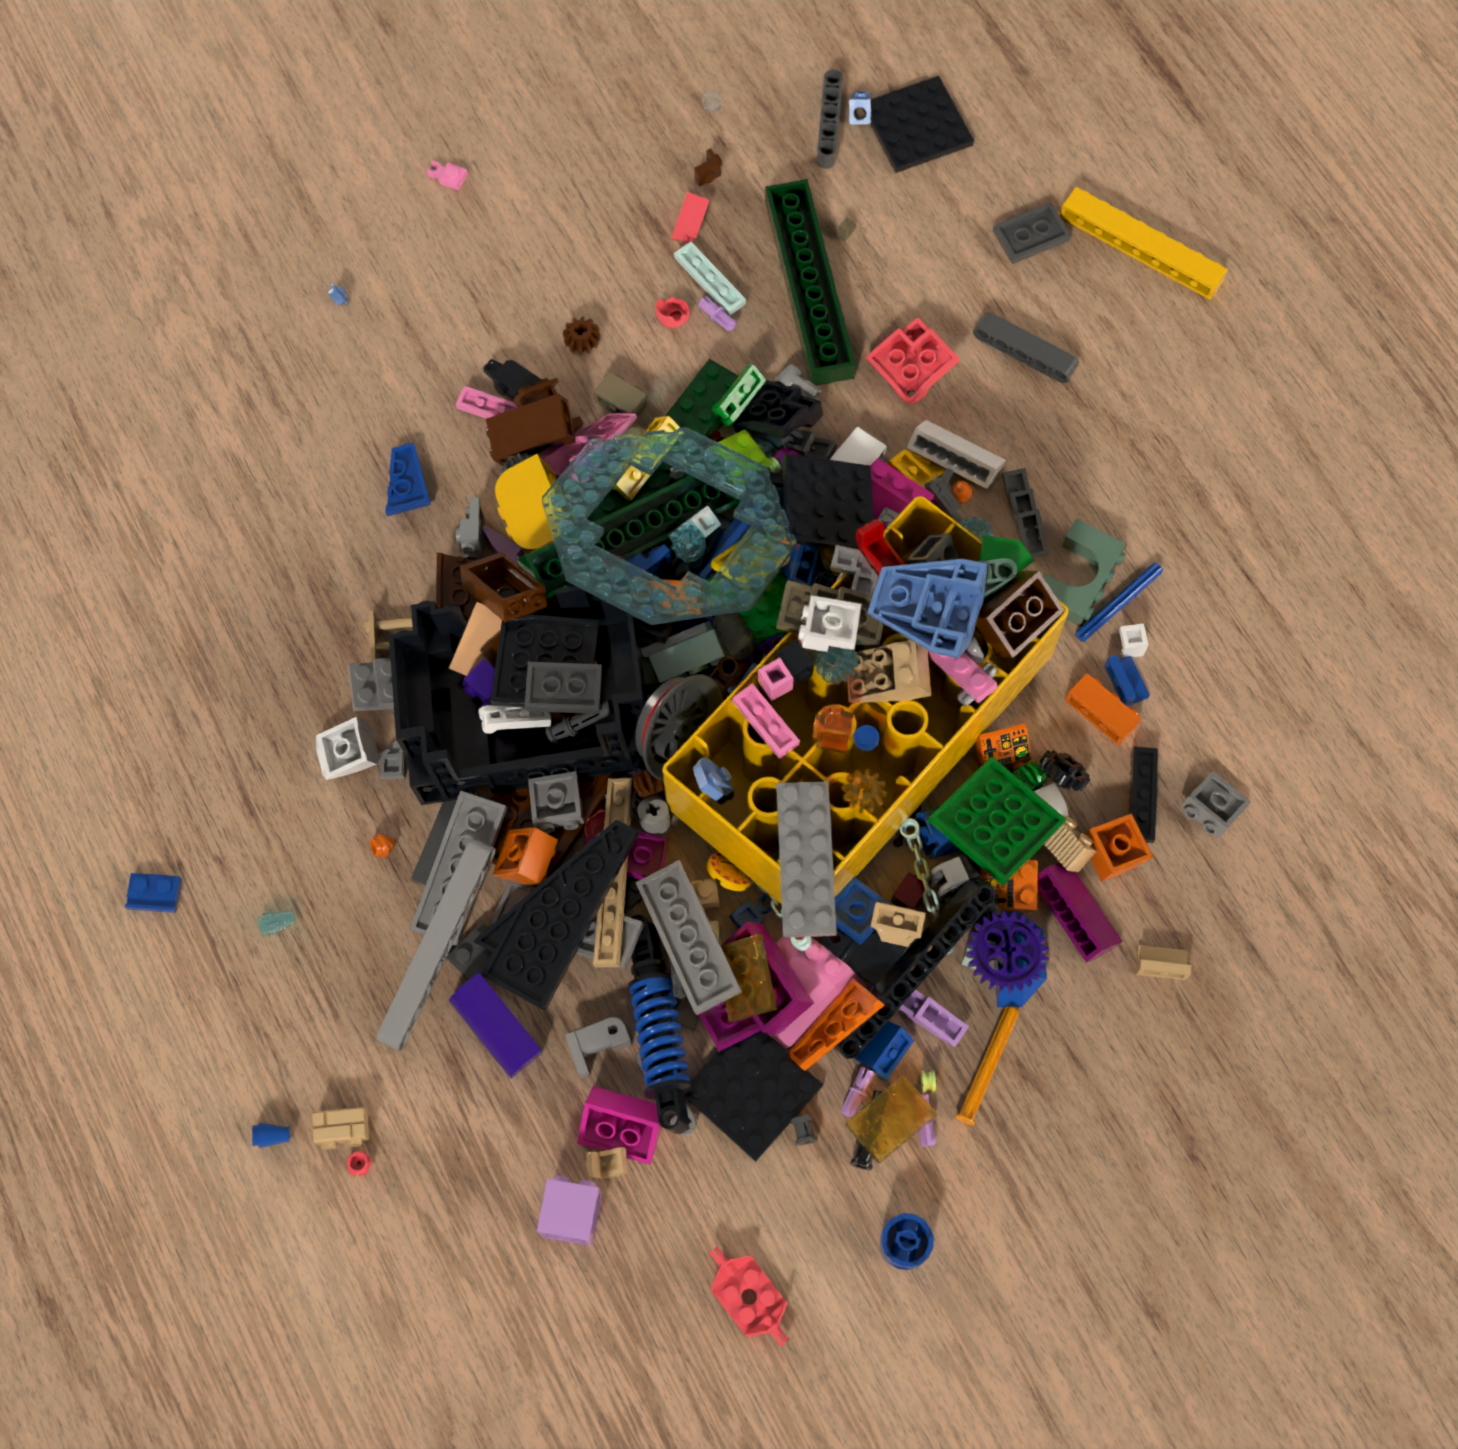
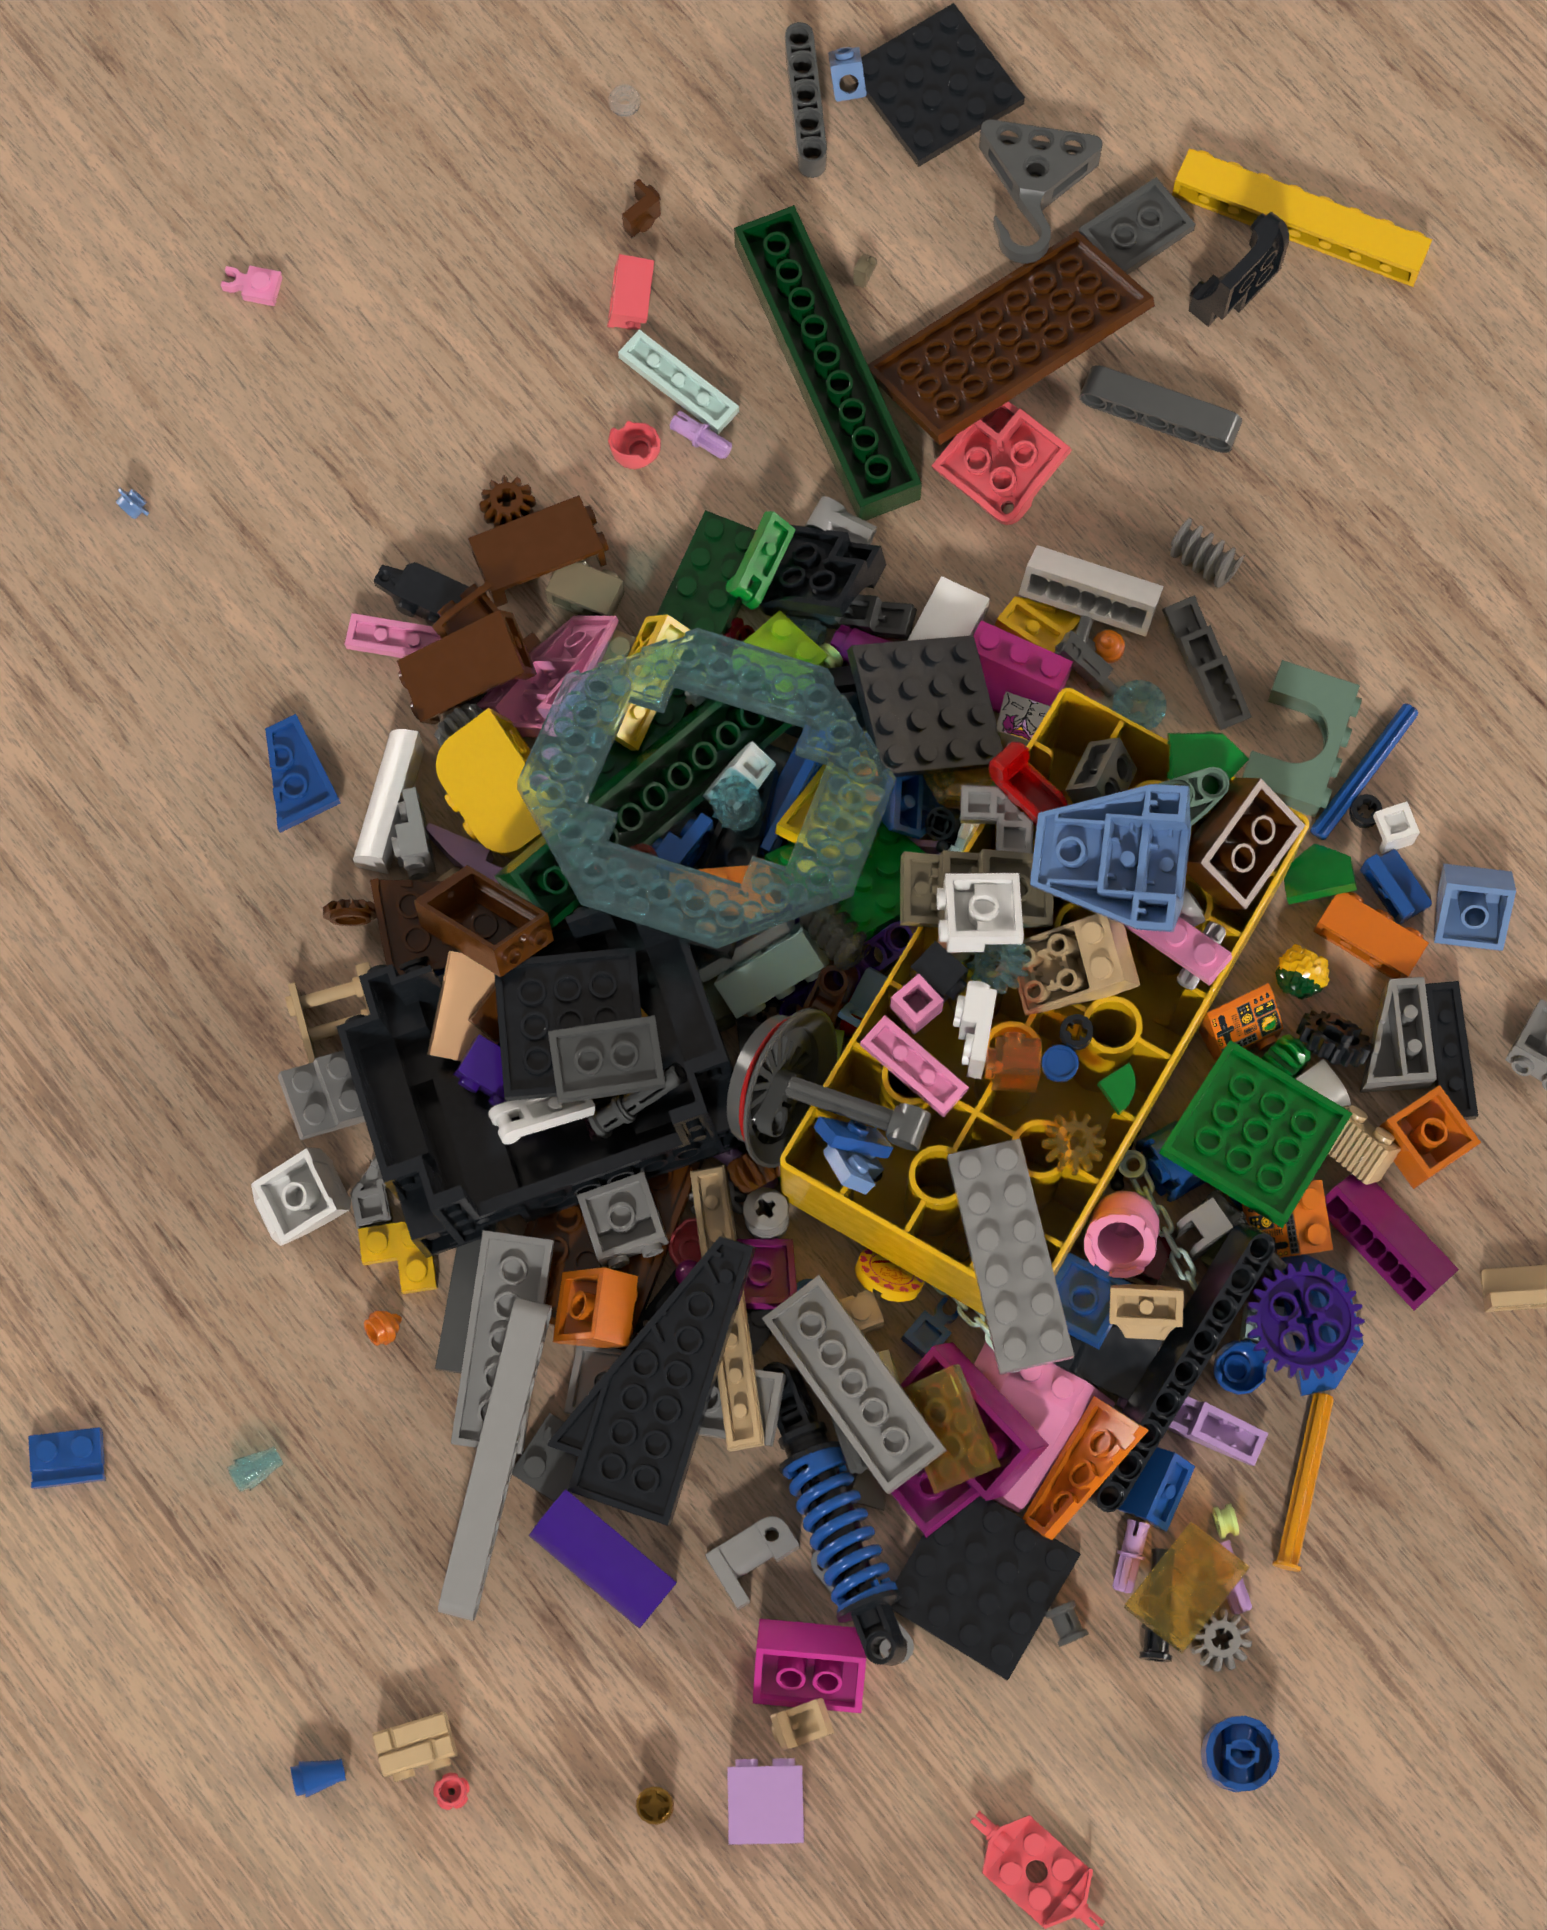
camera: 10 degrees left, 5 degrees up
(399, 792) = (394, 1243): none -> yellow plate
(419, 573) = (349, 912): none -> reddish brown gear
(475, 484) = (396, 772): none -> white brick
(491, 1196) = (651, 1802): none -> pearl gold wheel
(594, 363) = (537, 545): none -> reddish brown panel
(715, 761) = (853, 1137): none -> blue plate
(750, 757) = (903, 1125): none -> dark grey axle
(812, 696) = (974, 1018): none -> white plate
(889, 718) = (1087, 1028): none -> black bush
(891, 870) = (1122, 1234): none -> tile
(903, 761) = (1119, 1088): none -> green tile
(917, 1165) = (1231, 1646): none -> light grey gear
(933, 284) = (1009, 337): none -> reddish brown plate
(958, 978) = (1239, 1367): none -> blue hair
(971, 194) = (1054, 166): none -> dark grey piece
(1036, 444) = (1205, 554): none -> light grey piece
(1051, 723) = (1302, 972): none -> piece
(1074, 662) = (1319, 874): none -> green slope
(1098, 270) = (1248, 277): none -> black slope
(1111, 781) = (1401, 1040): none -> light grey wedge
(1113, 620) = (1357, 819): none -> black bush
(1177, 702) = (1474, 906): none -> medium blue slope

